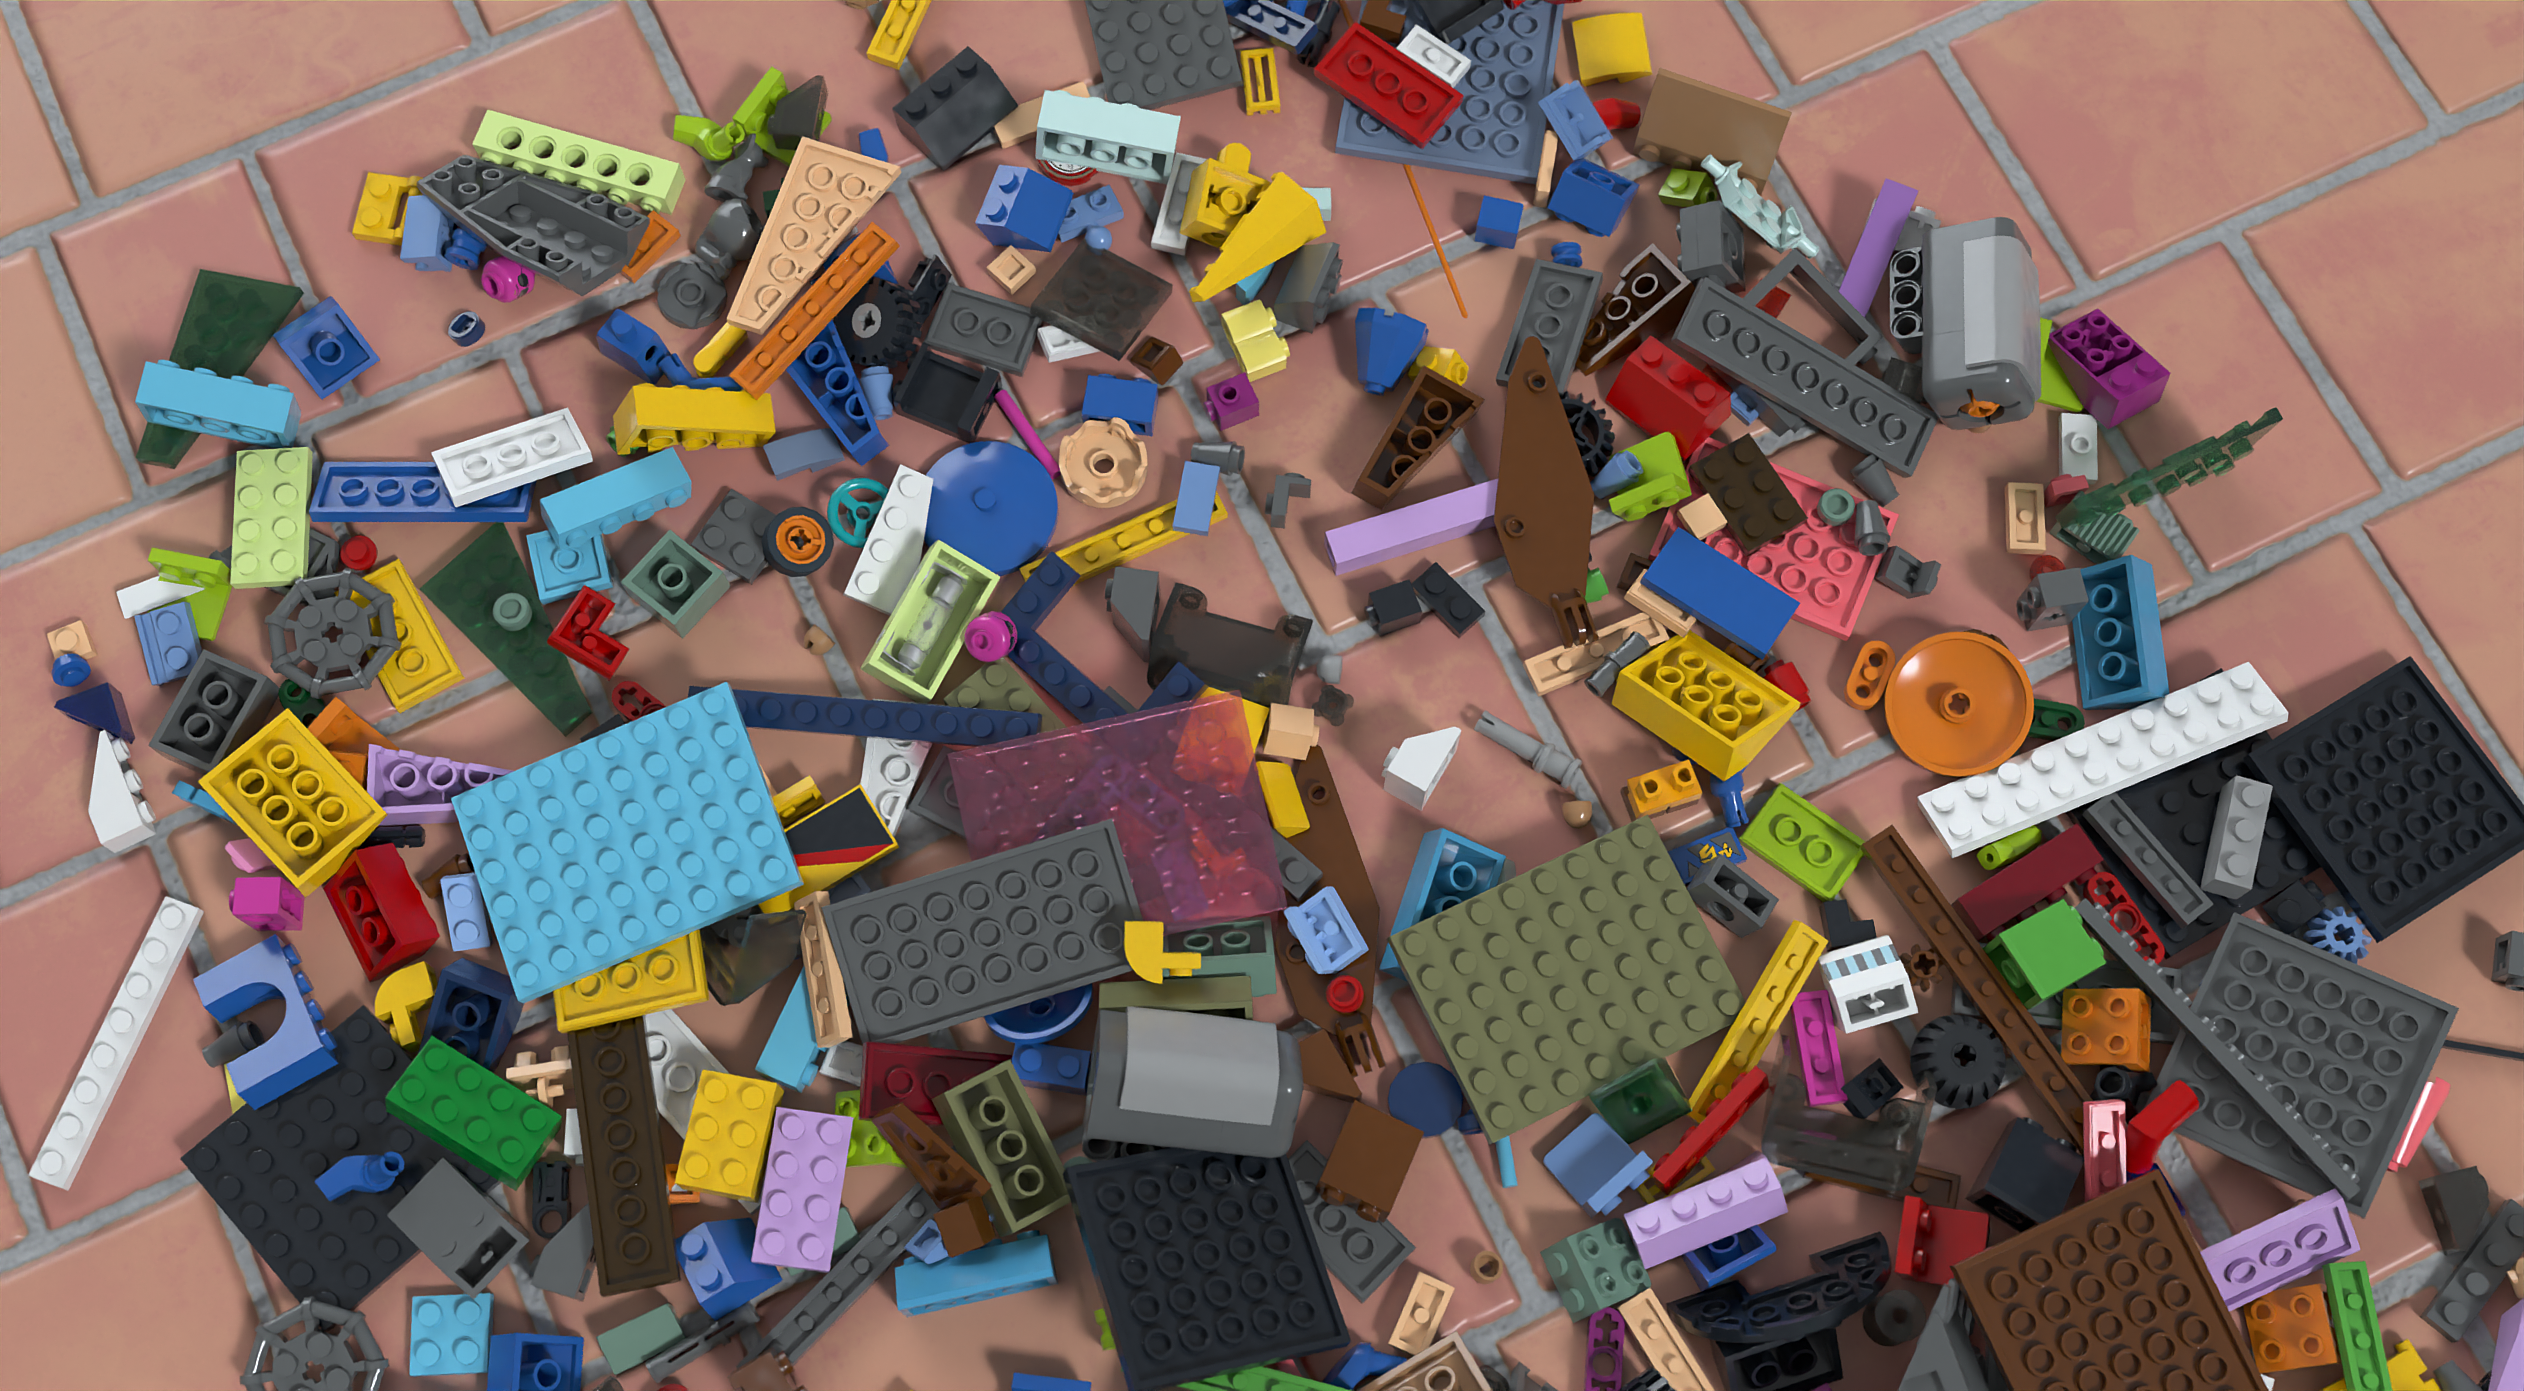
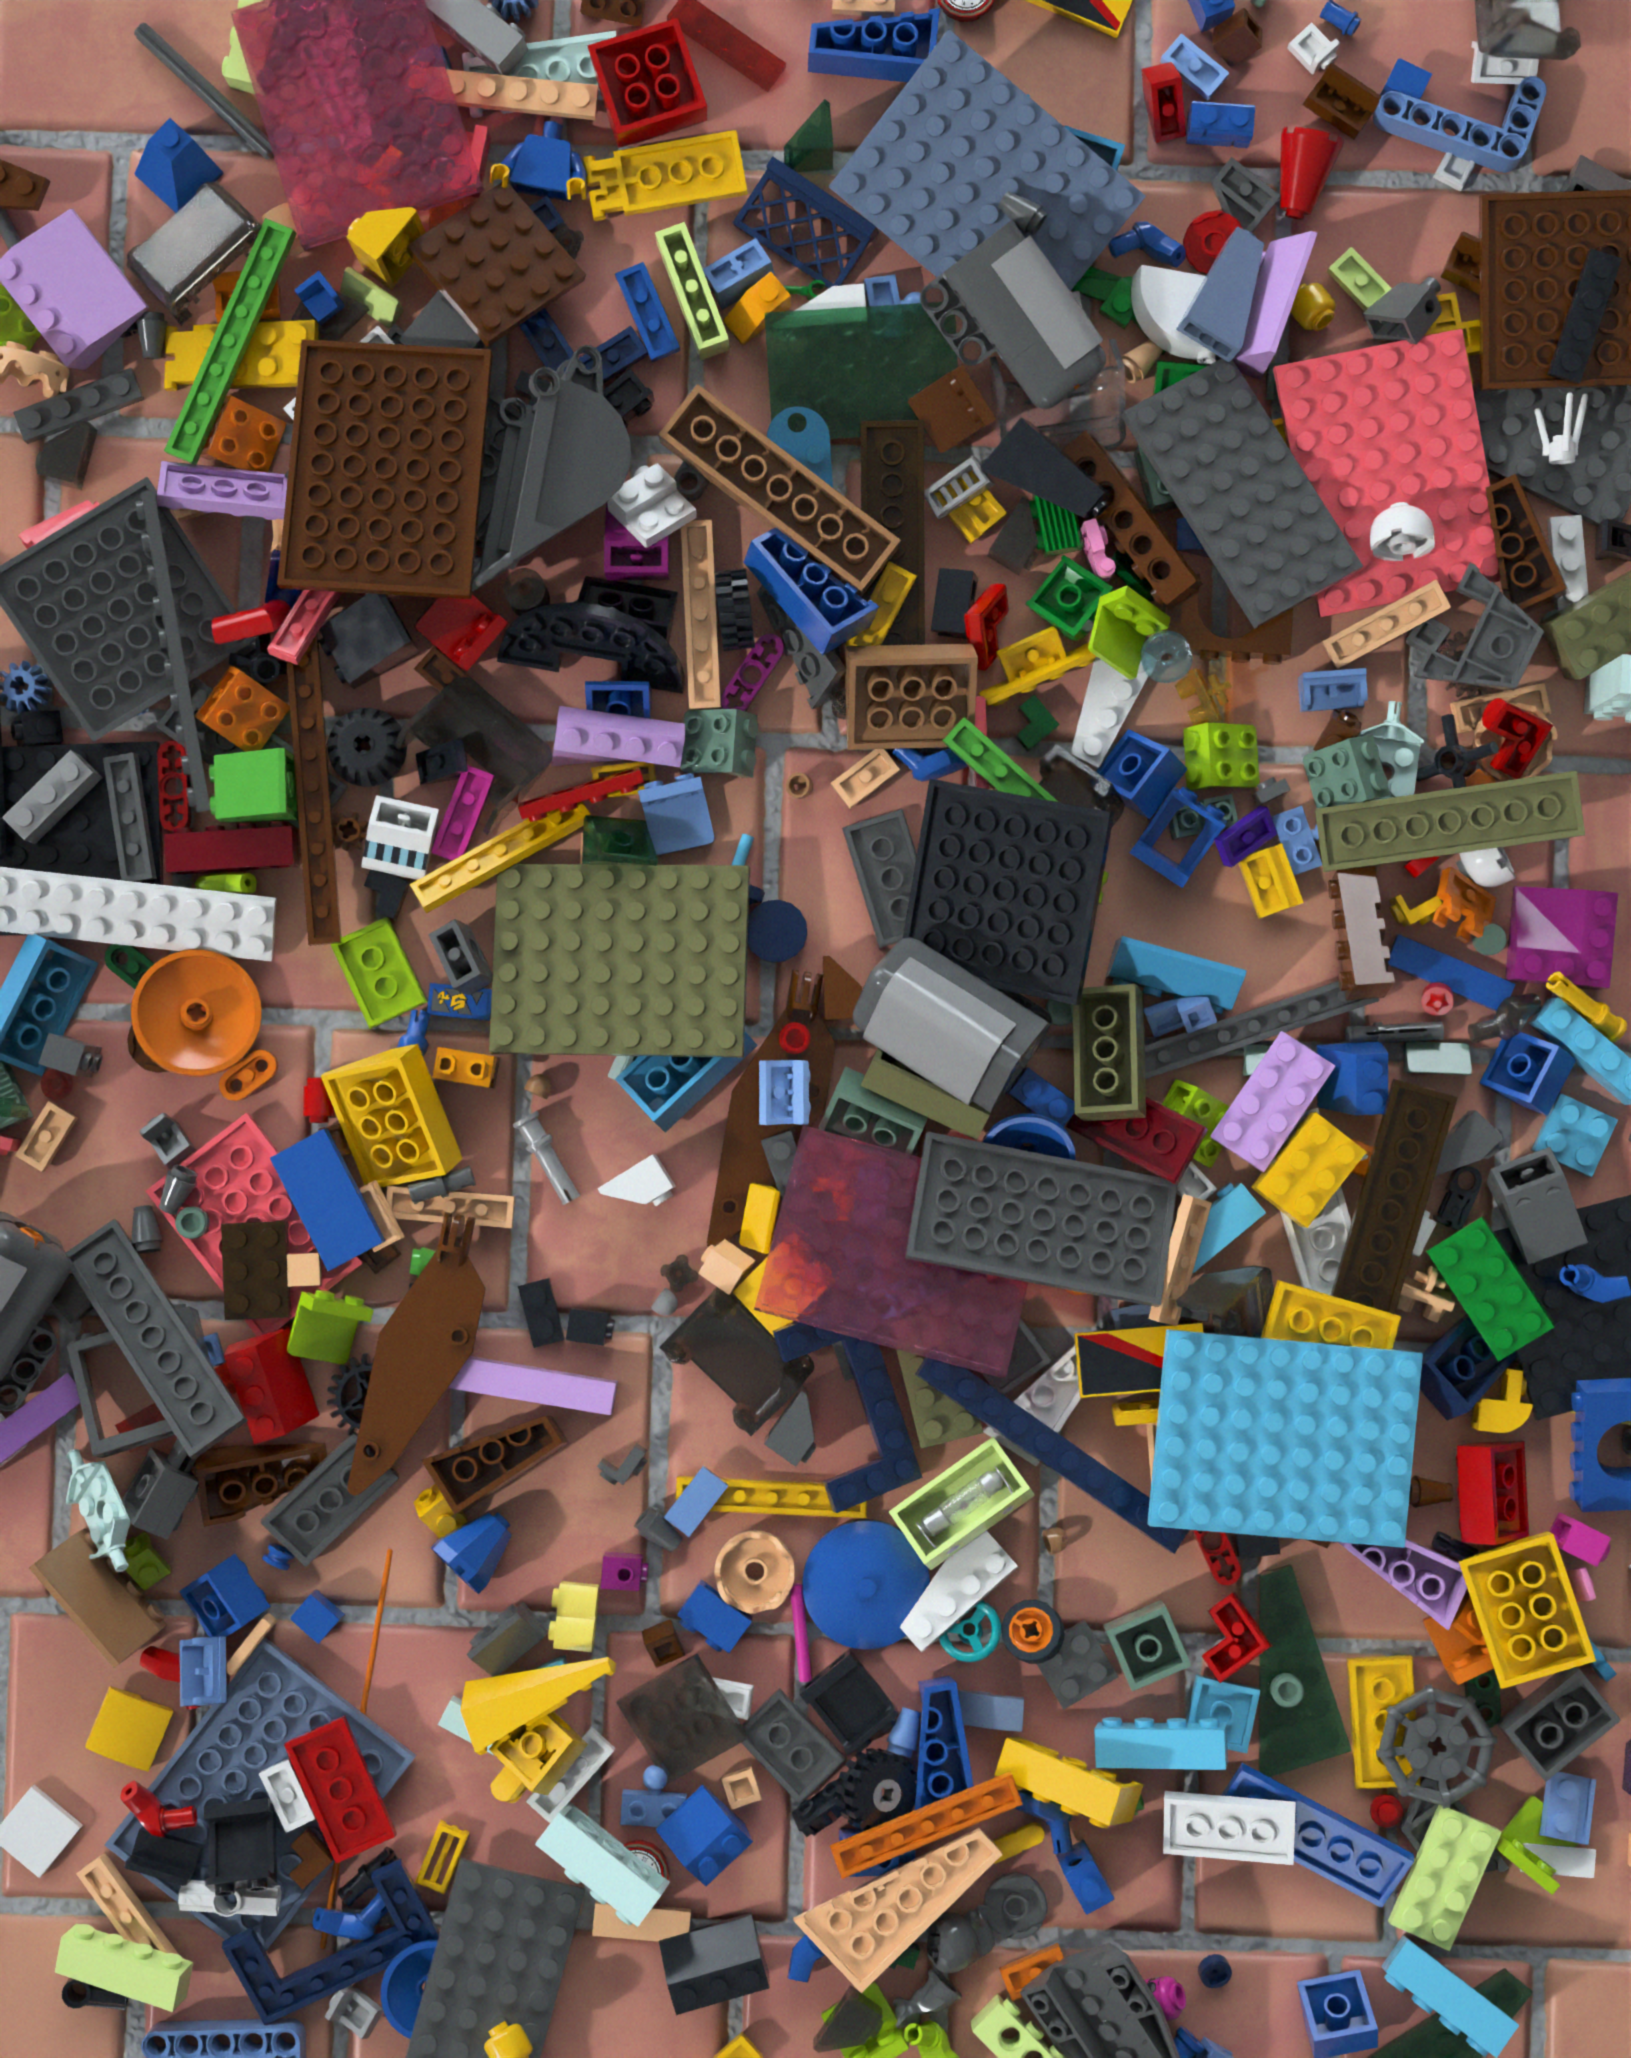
camera: 150 degrees left, 15 degrees up
(466, 912) = (1429, 1455): light blue plate -> none
(931, 1161) = (1170, 1070): reddish brown wing -> none
(964, 1226) = (1166, 1010): reddish brown panel -> none
(990, 636) = (921, 1464): dark pink head -> none
(1145, 952) = (932, 1135): yellow brick -> none
(1368, 1162) = (844, 904): reddish brown brick -> none
(1617, 474) = (349, 1342): medium blue cone -> none

